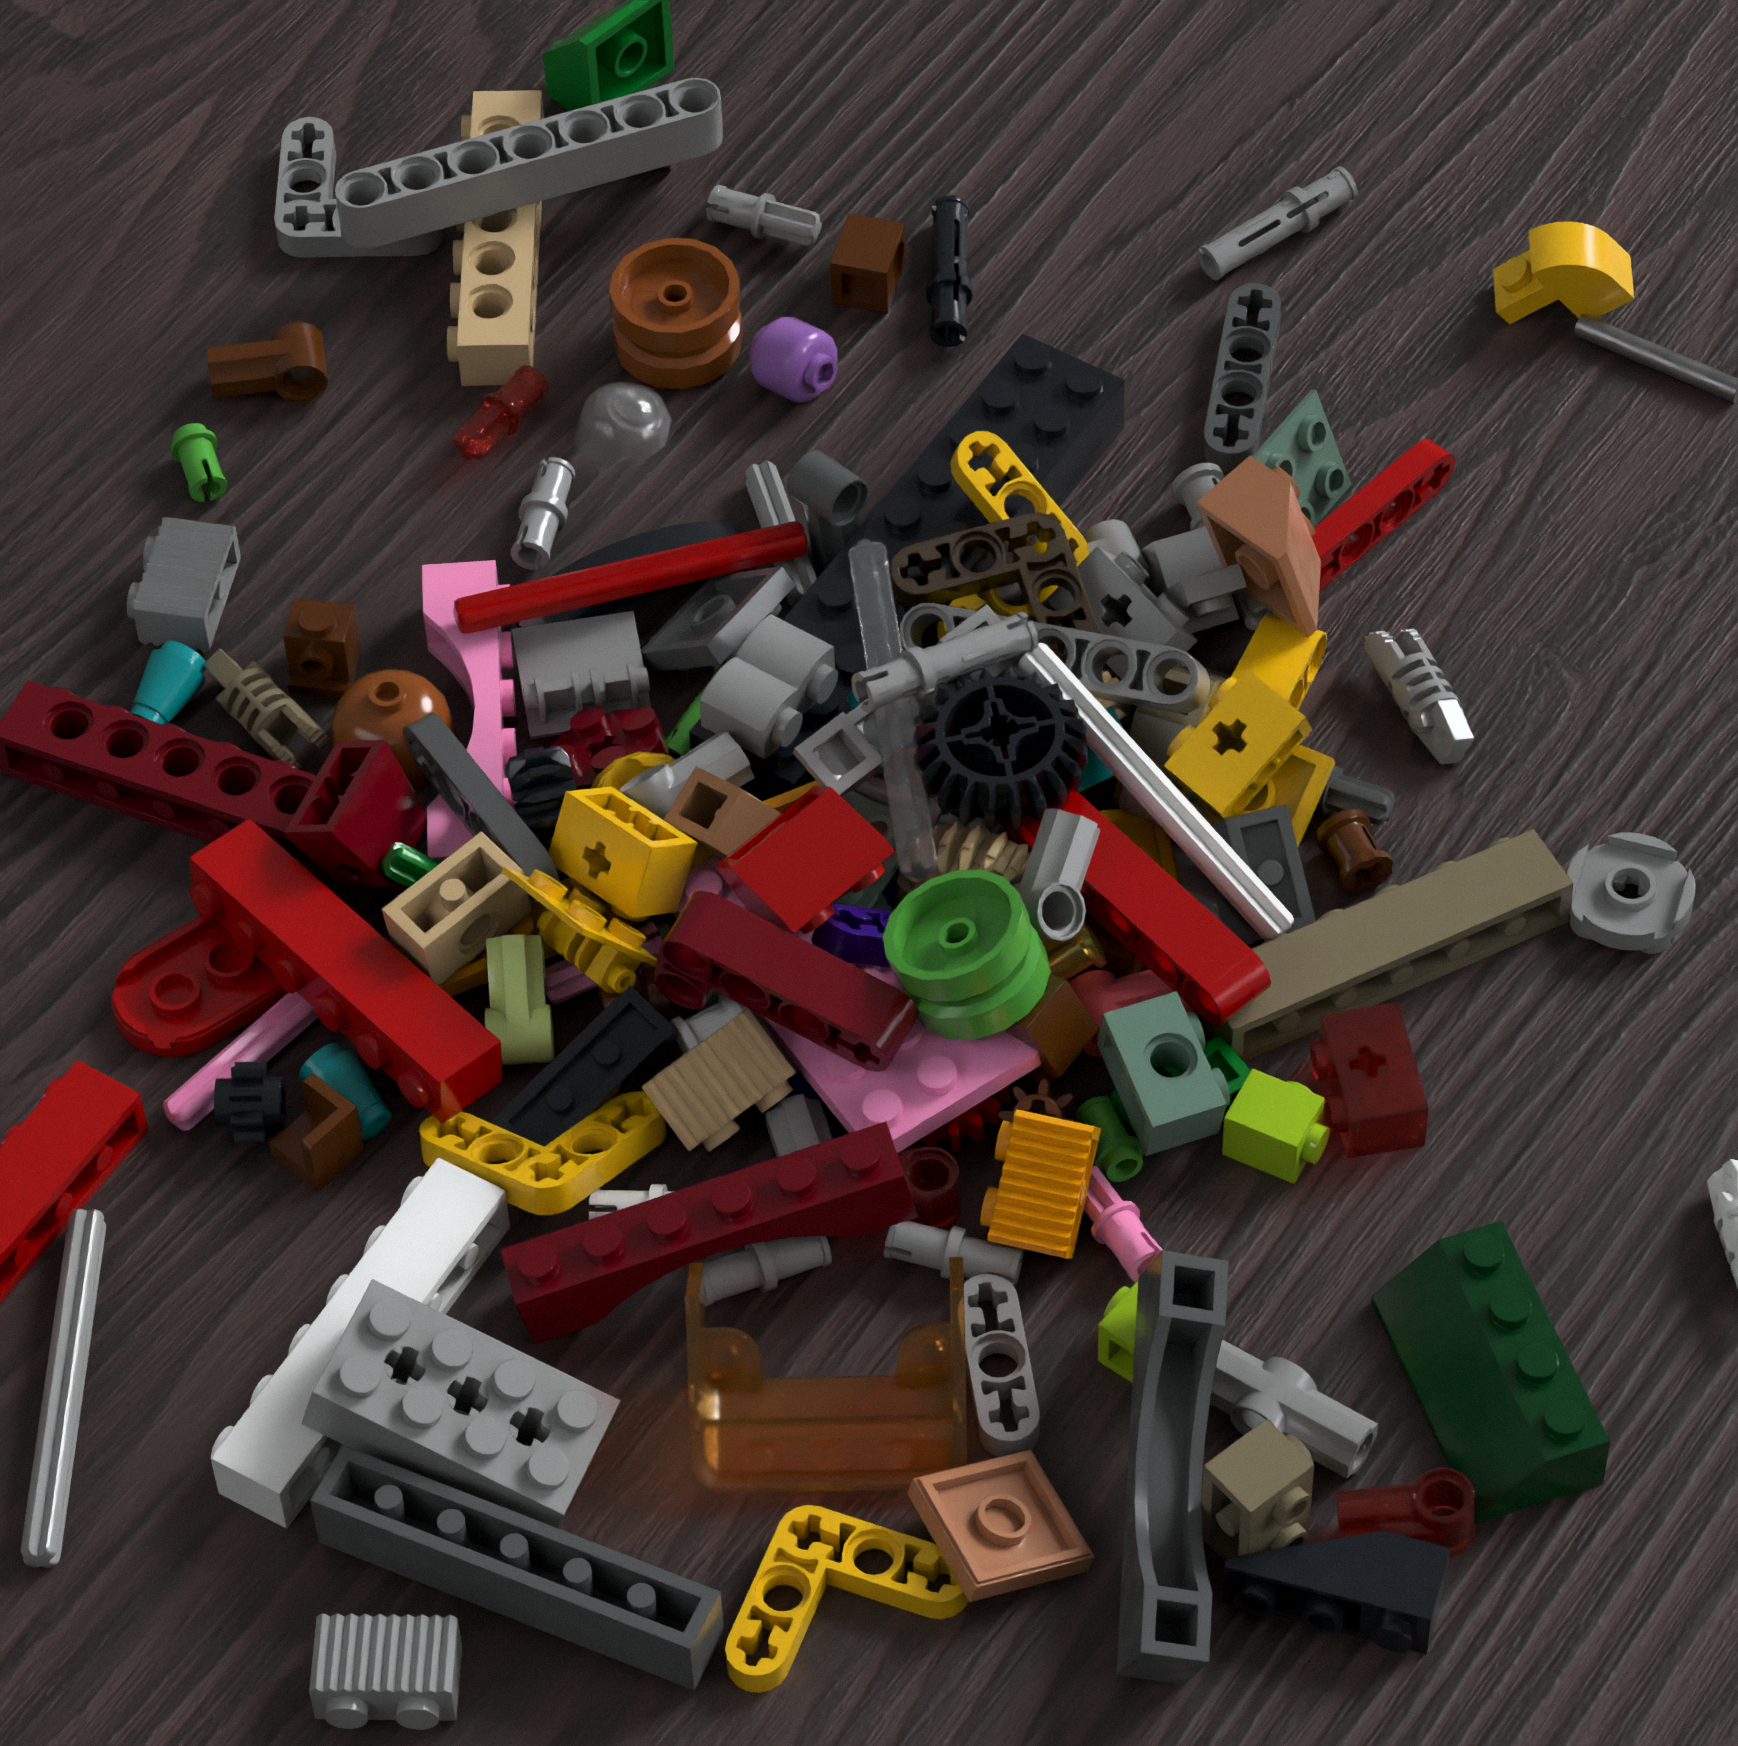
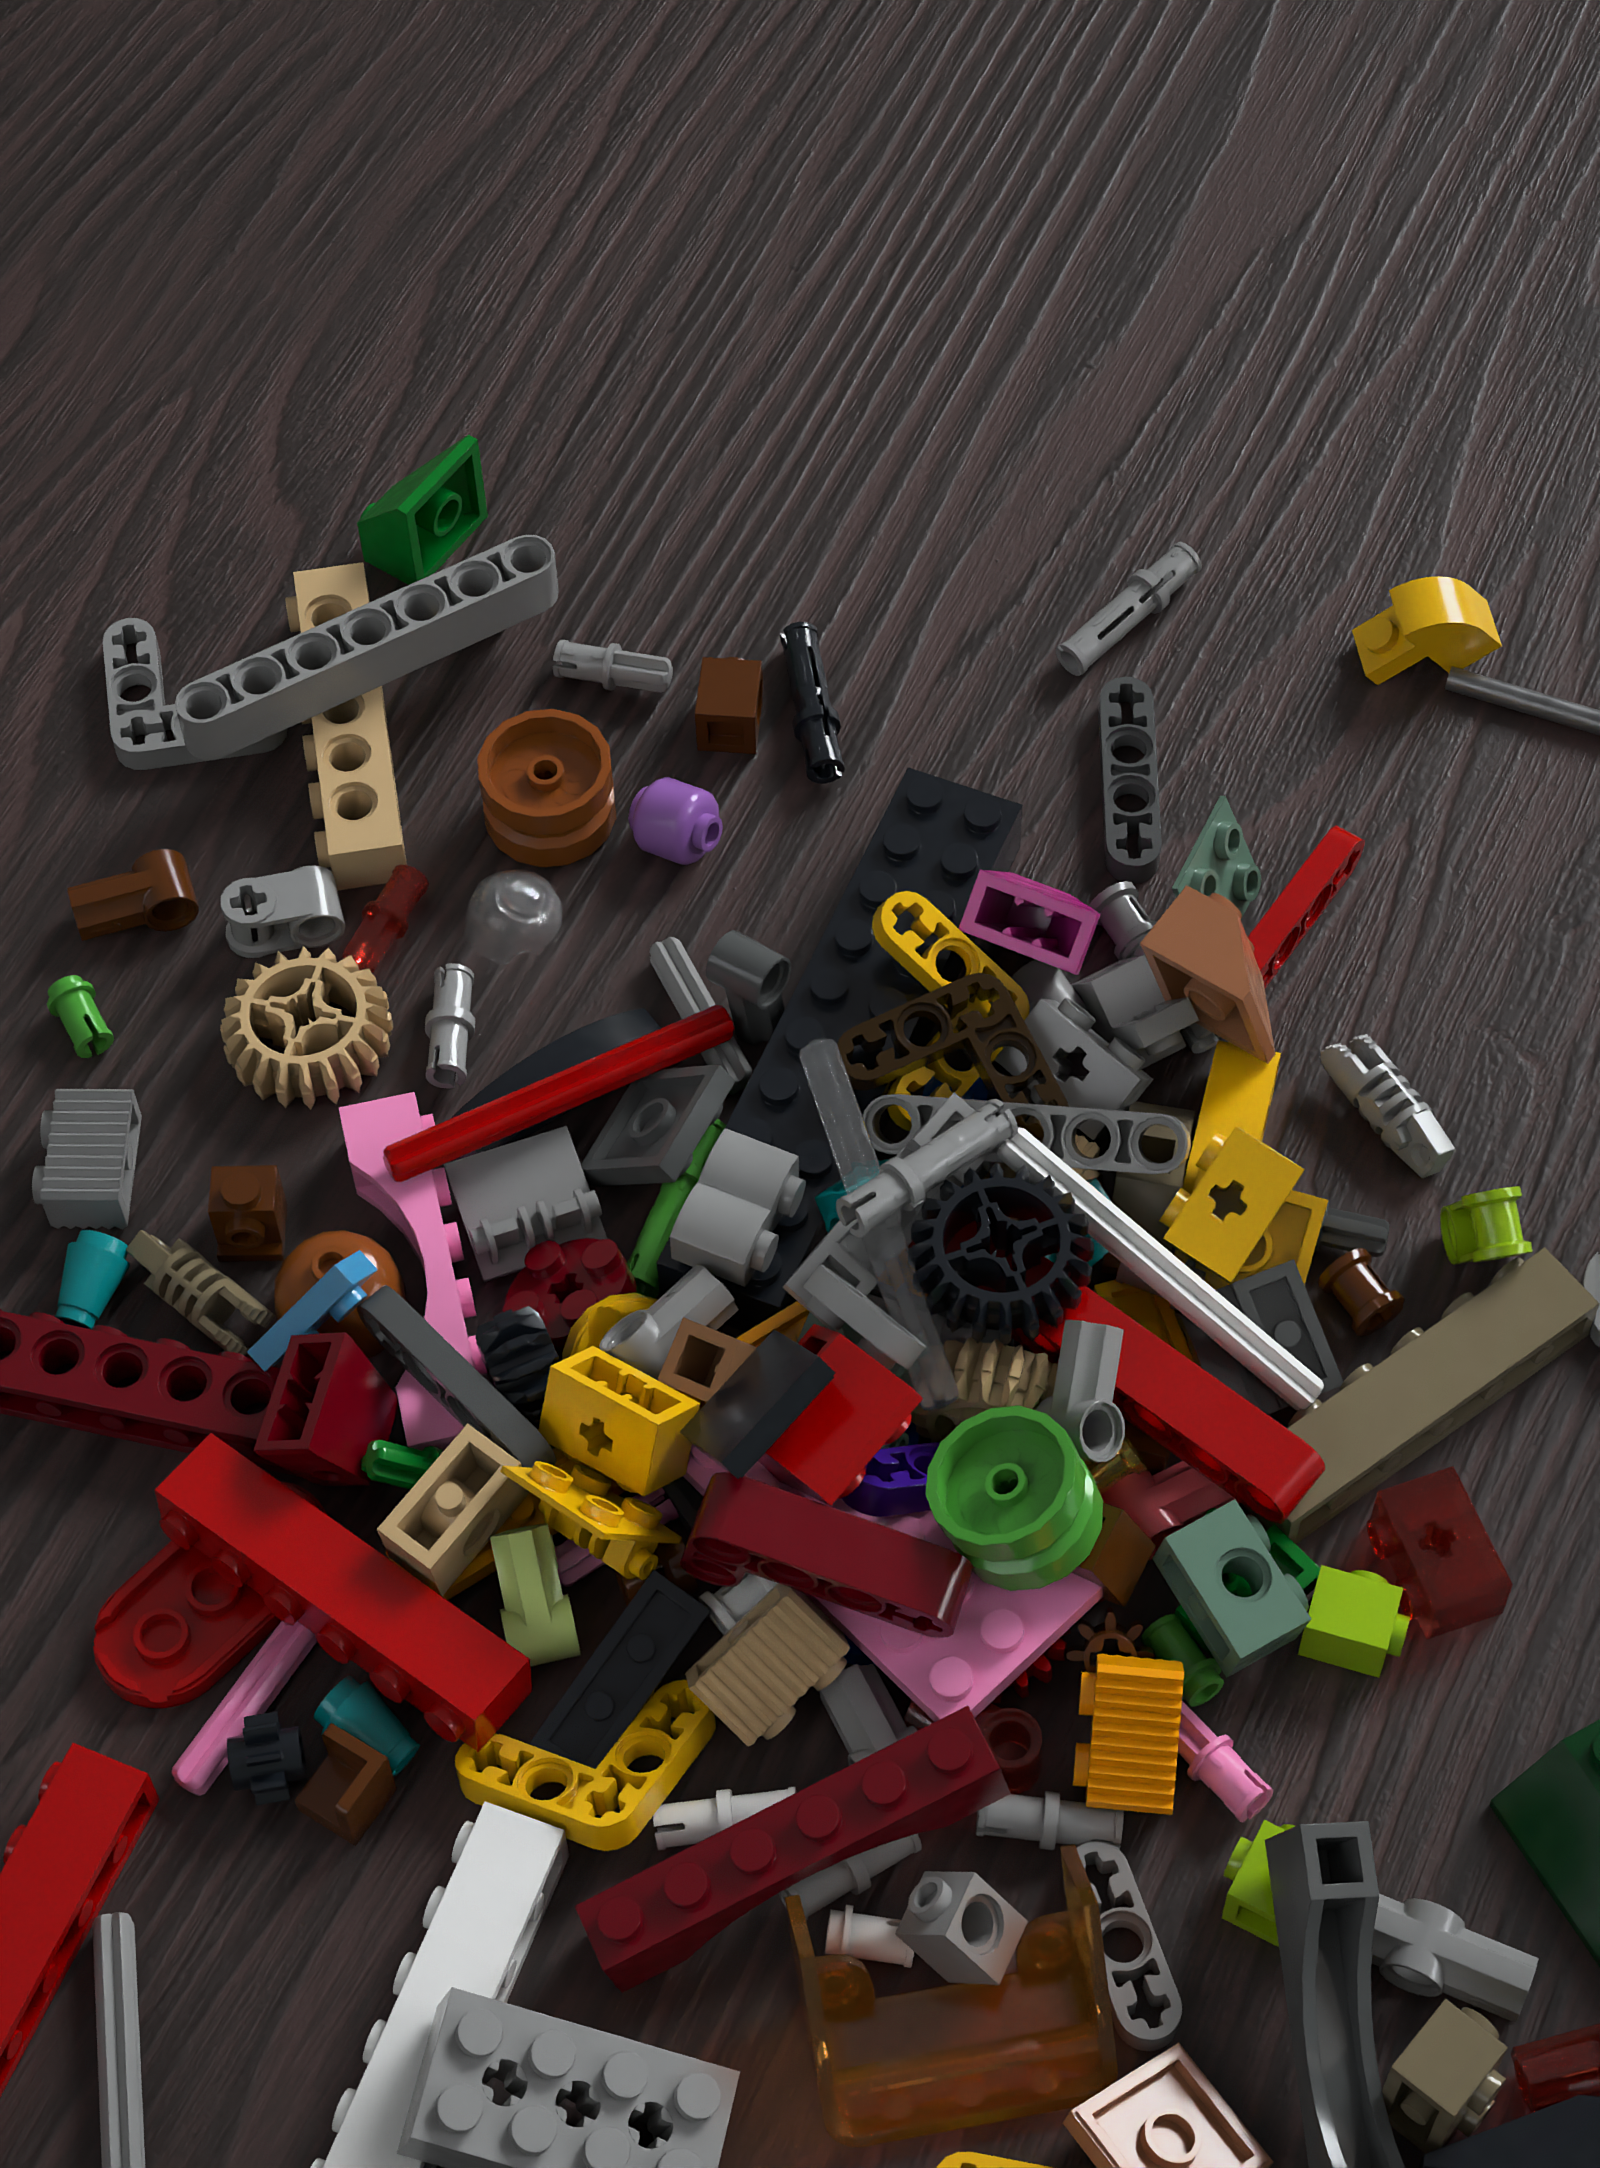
camera: 10 degrees left, 5 degrees up
(376, 716) = (333, 1295): none -> dark azure plate
(404, 484) = (319, 1042): none -> tan gear
(411, 394) = (286, 909): none -> light grey piece
(744, 838) = (758, 1403): none -> black tile
(770, 1324) = (866, 1937): none -> white pin
(839, 767) = (840, 1302): none -> light grey plate
(849, 1320) = (961, 1927): none -> light grey brick
(1098, 474) = (1030, 919): none -> dark pink slope
(1483, 803) = (1483, 1227): none -> lime piece

